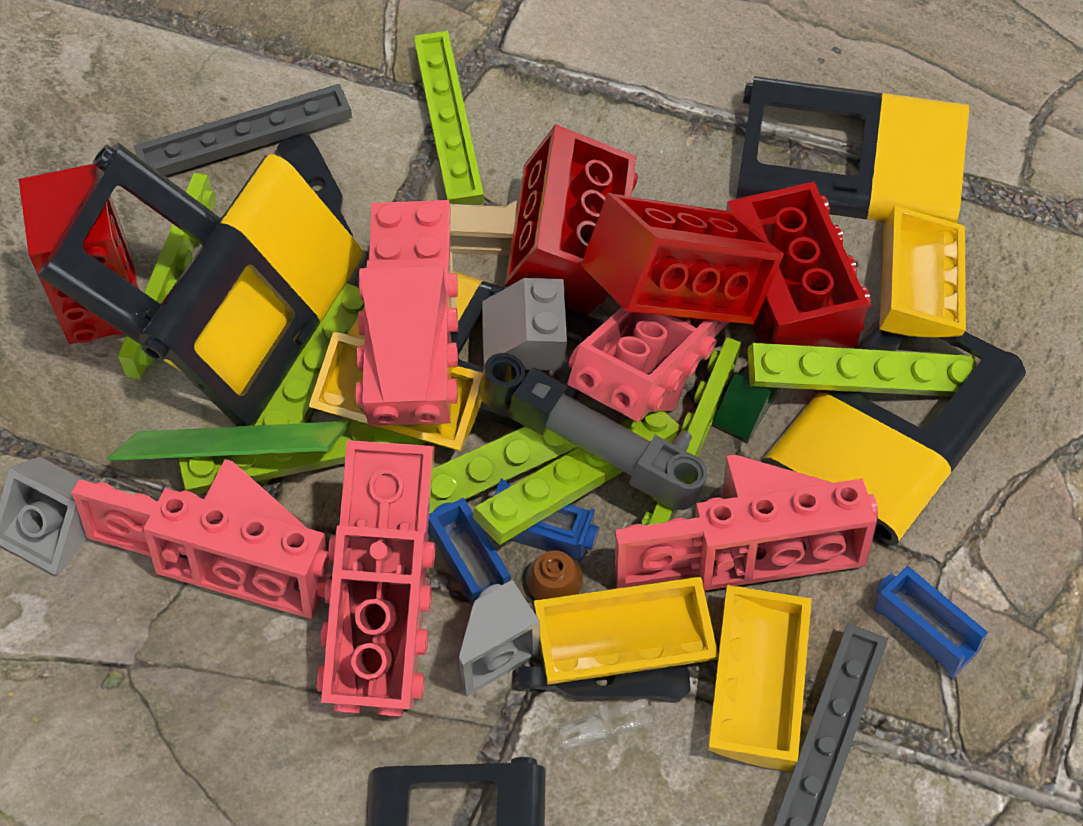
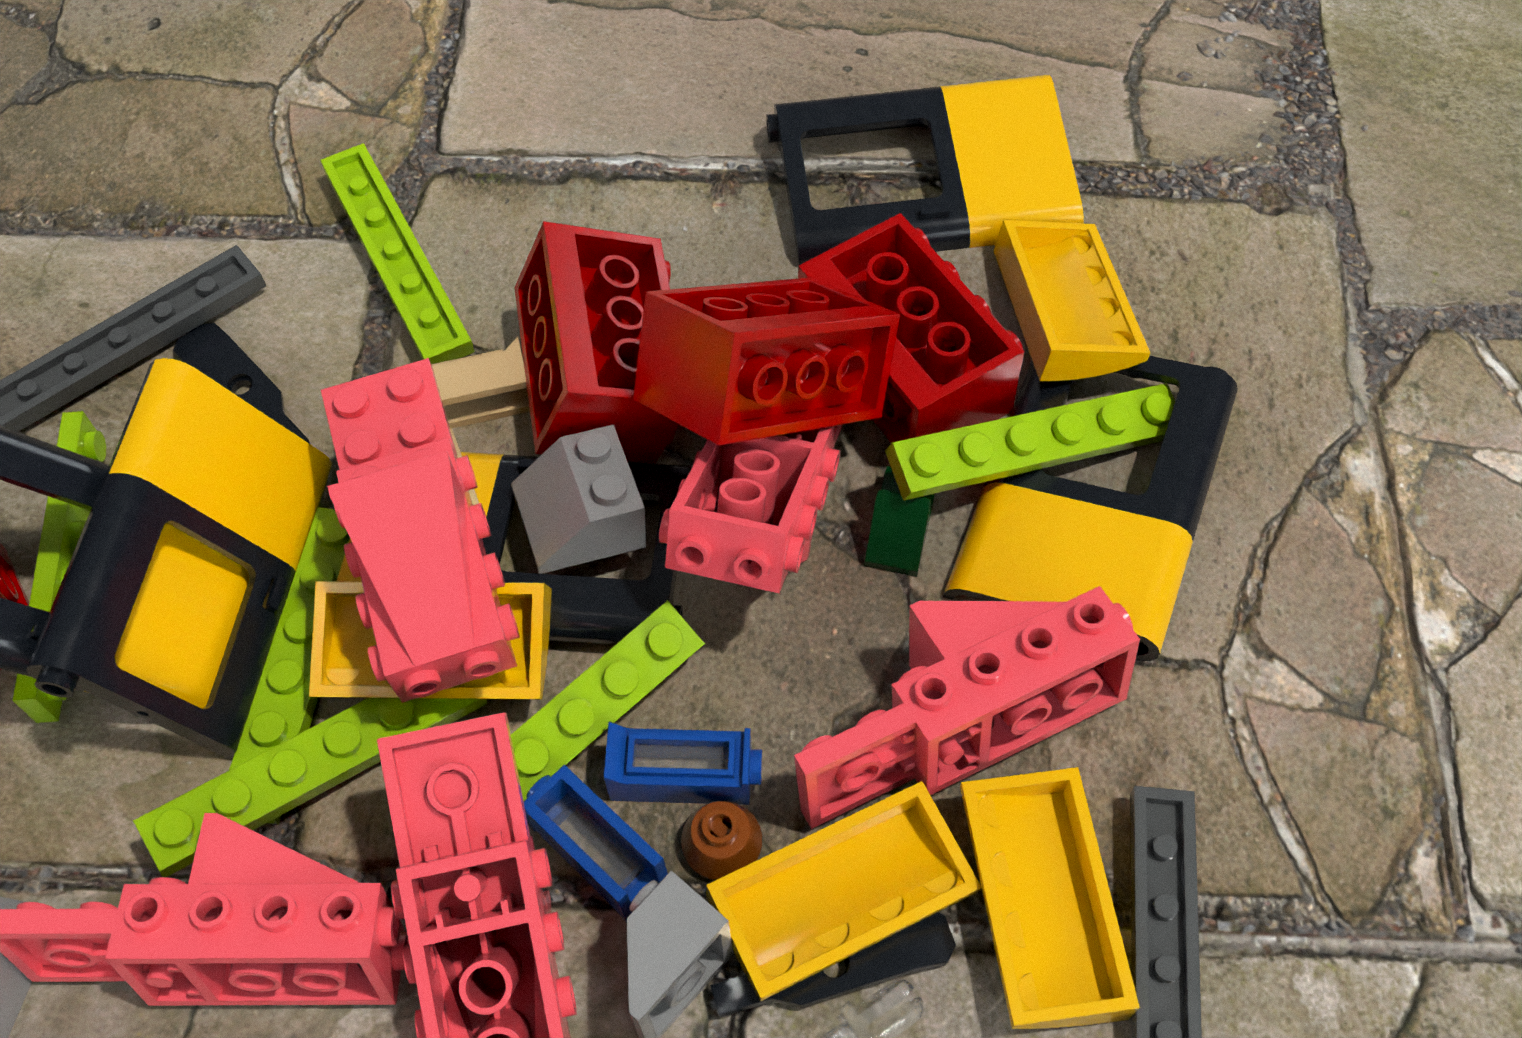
camera: 15 degrees left, 0 degrees up
(230, 441) = (206, 780): bright green window -> none
(543, 404) = (639, 604): dark grey piece -> none
(560, 483) = (703, 695): lime plate -> none
(708, 397) = (846, 576): lime plate -> none
(930, 619) = (1238, 748): blue window -> none

